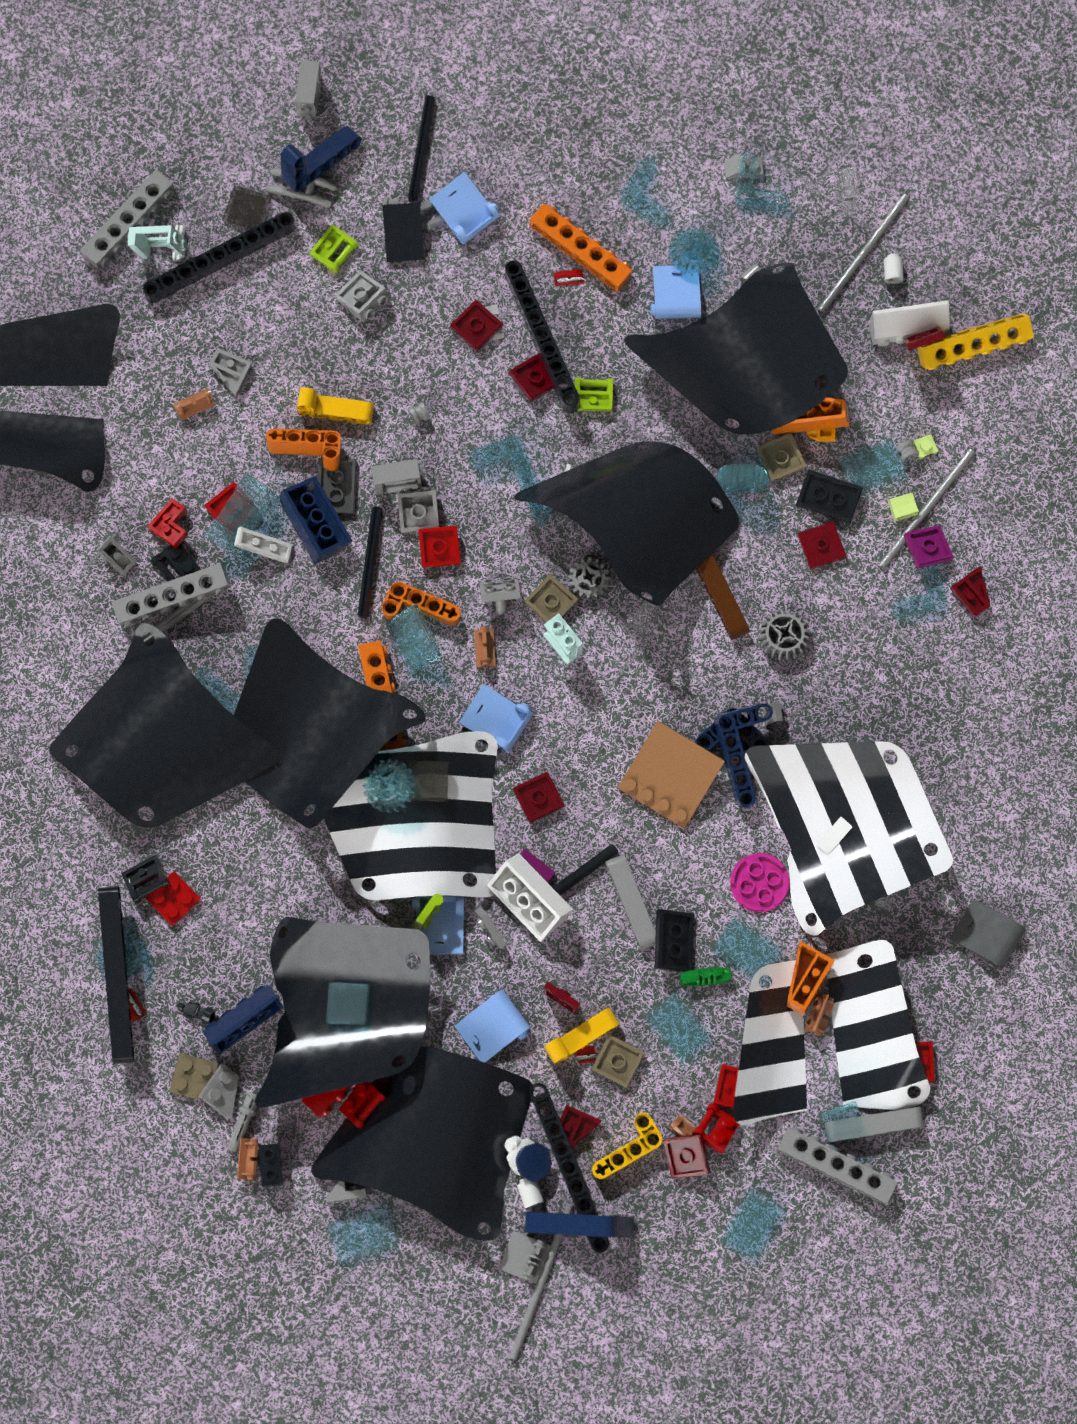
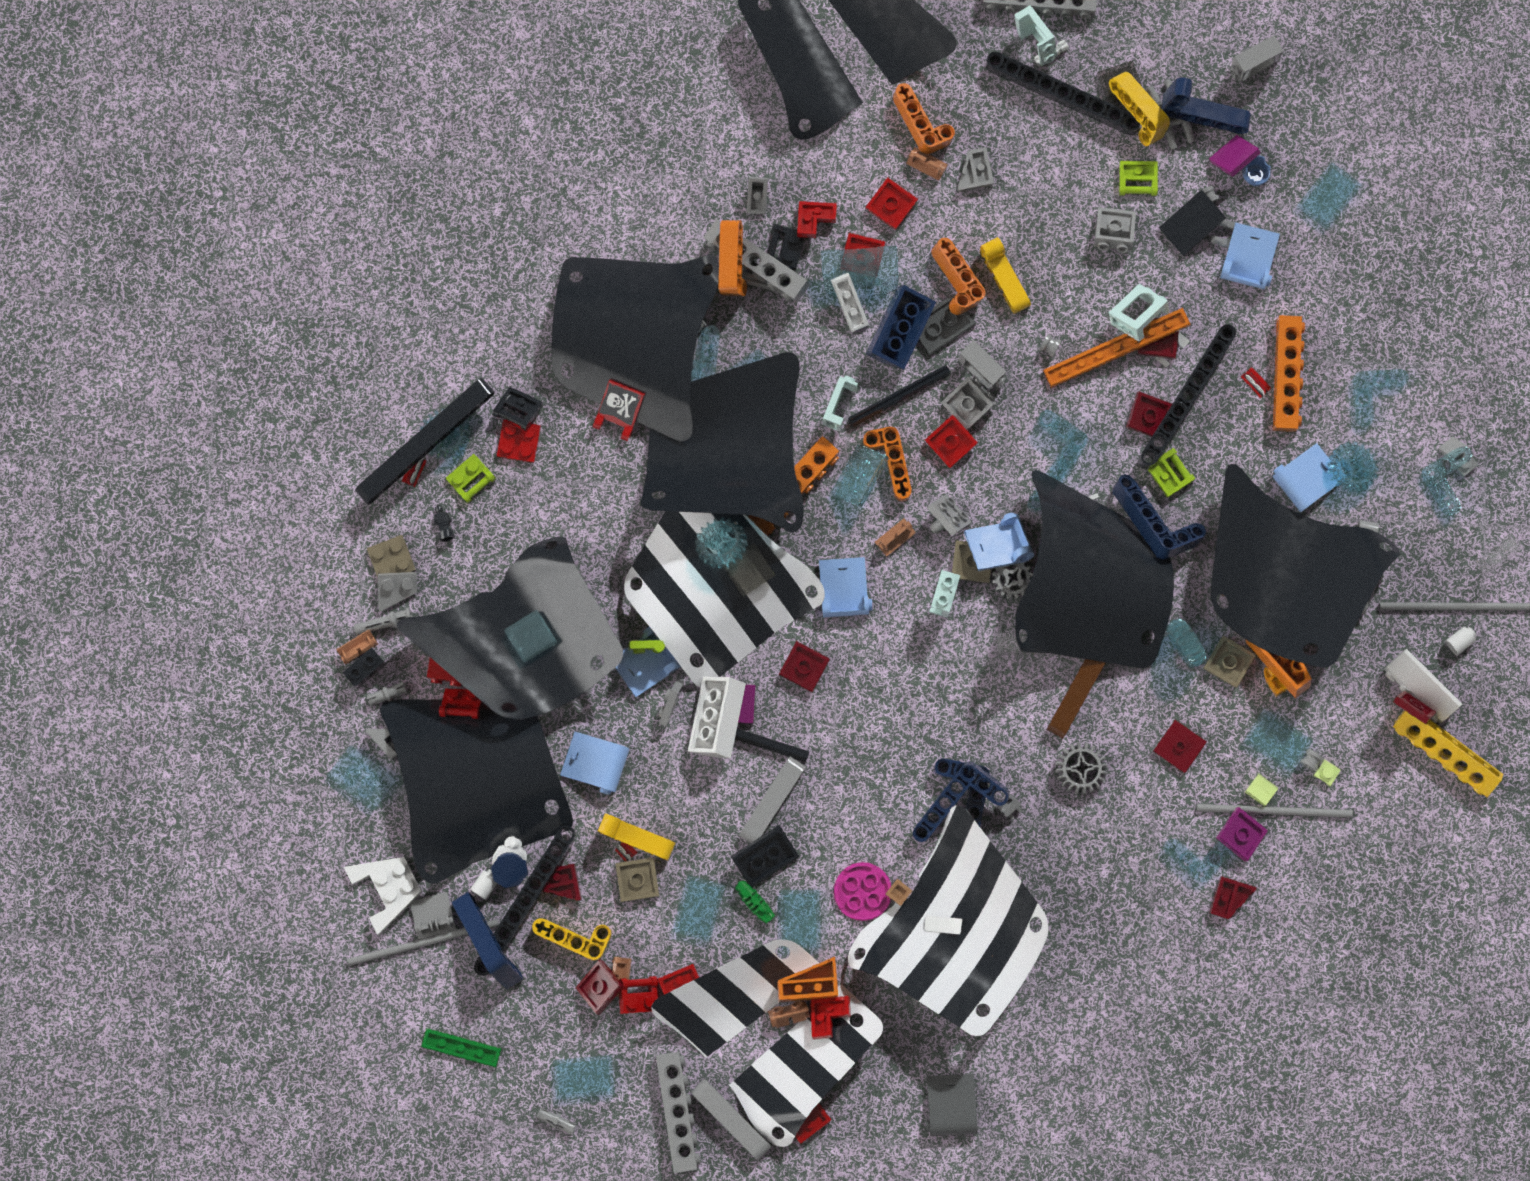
camera: 60 degrees right, 5 degrees up
(127, 383) = (920, 118): none -> orange beam
(154, 612) = (730, 259): none -> orange beam
(168, 963) = (466, 474): none -> lime plate
(205, 455) = (891, 203): none -> red plate
(209, 792) = (619, 406): none -> flag
(243, 1019) = (461, 563): dark blue slope -> none
(279, 202) = (1141, 106): none -> yellow beam
(306, 1162) = (386, 694): none -> light grey pin
(348, 629) = (829, 419): none -> light aqua panel
(373, 161) = (1234, 155): none -> magenta tile
(393, 150) = (1260, 166): none -> medium blue hair
(421, 148) = (1277, 184): black axle -> none
(449, 339) = (1135, 327): none -> light aqua panel
(460, 115) = (1329, 195): none -> clear light blue tile
(460, 363) = (1115, 348): none -> orange tile
(473, 1271) = (394, 884): none -> white wing
(553, 567) = (1000, 543): none -> light blue door
(561, 997) = (655, 799): dark red plate -> none
(624, 437) = (1151, 526): none -> dark blue beam
(654, 1312) = (461, 1047): none -> green tile
(671, 774) = (898, 758): medium nougat plate -> none
(773, 1274) = (556, 1121): none -> light grey pin
(782, 852) = (898, 892): none -> medium nougat tile
(829, 496) = (1225, 724): black tile -> none
(838, 982) = (824, 1011): none -> red plate
(838, 1112) = (724, 1087): clear light blue tile -> none

